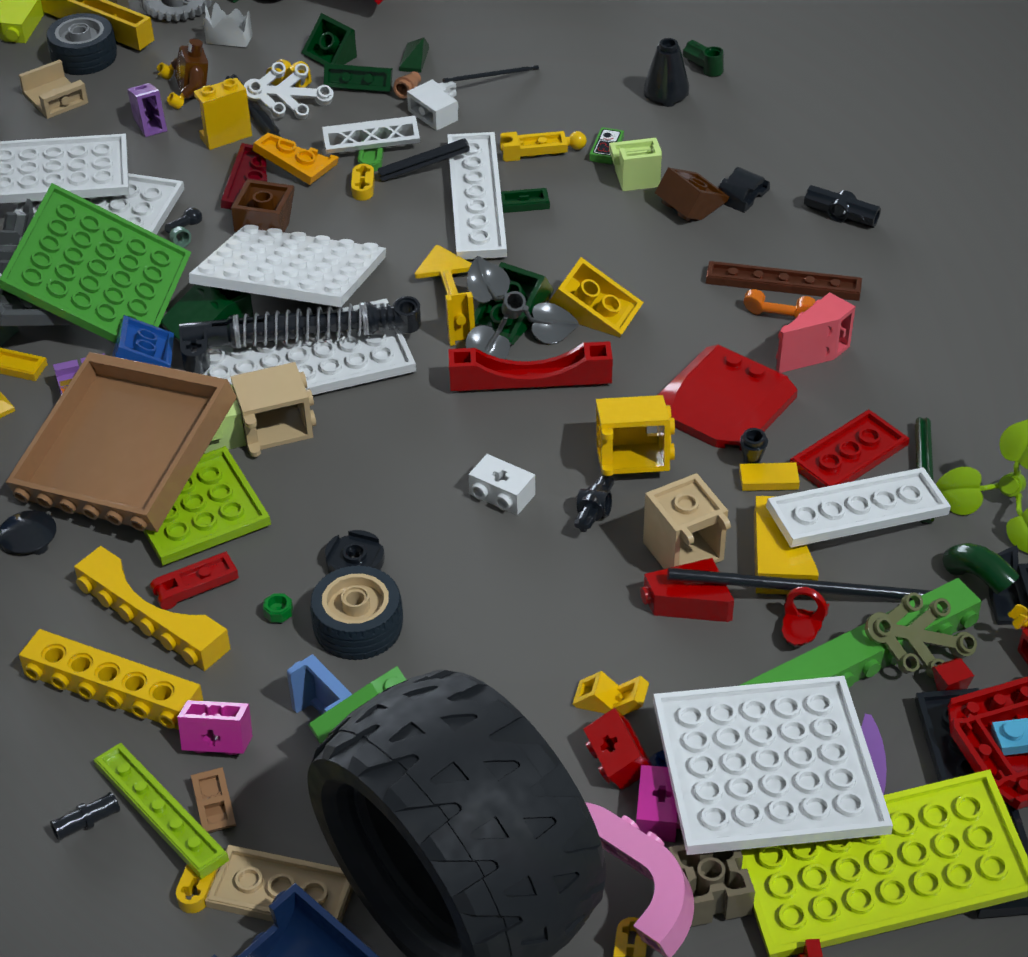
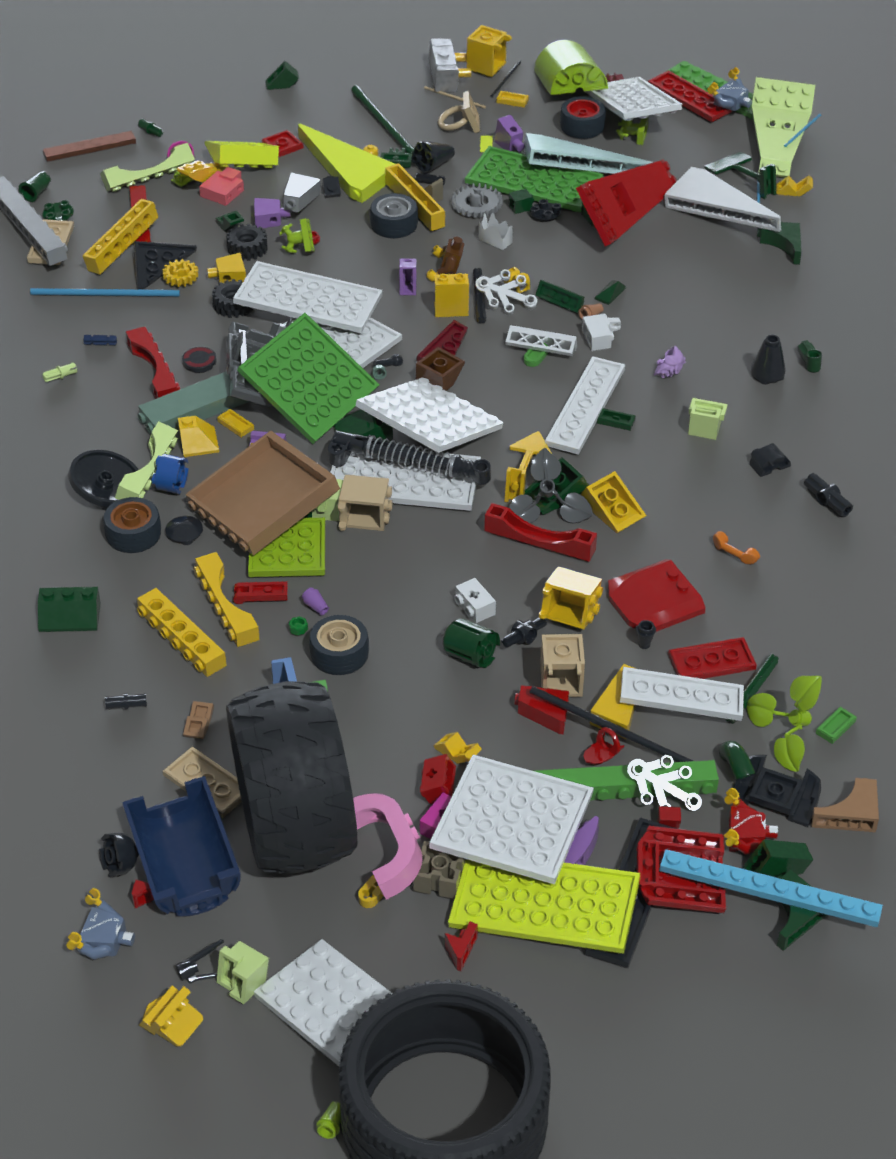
camera: 25 degrees right, 0 degrees up
(51, 90) = (358, 243): tan panel -> none
(143, 343) = (310, 437): blue slope -> none
(161, 811) = (166, 713): lime tile -> none
(186, 887) = (164, 759): yellow beam -> none
(215, 727) = (220, 679): dark pink brick -> none
(281, 564) = (314, 600): none -> medium lavender cone
(299, 162) = (482, 343): light orange wing -> none
(331, 42) = (557, 265): dark green slope -> none
(357, 541) = (367, 604): black plate -> none
(360, 181) = (519, 368): yellow beam -> none
(423, 159) = (565, 369): black axle -> none
(487, 74) = (652, 321): black piece -> none
(535, 144) = (650, 382): yellow plate -> none
(536, 542) = (471, 642): none -> dark green cylinder
(549, 112) = (671, 363): none -> lavender hair
(600, 149) = (701, 392): tile -> none
(689, 194) = (728, 451): reddish brown slope -> none
(769, 476) = (648, 656): yellow tile -> none
(783, 280) = (752, 533): copper tile -> none
(816, 334) = (738, 575): coral slope -> none

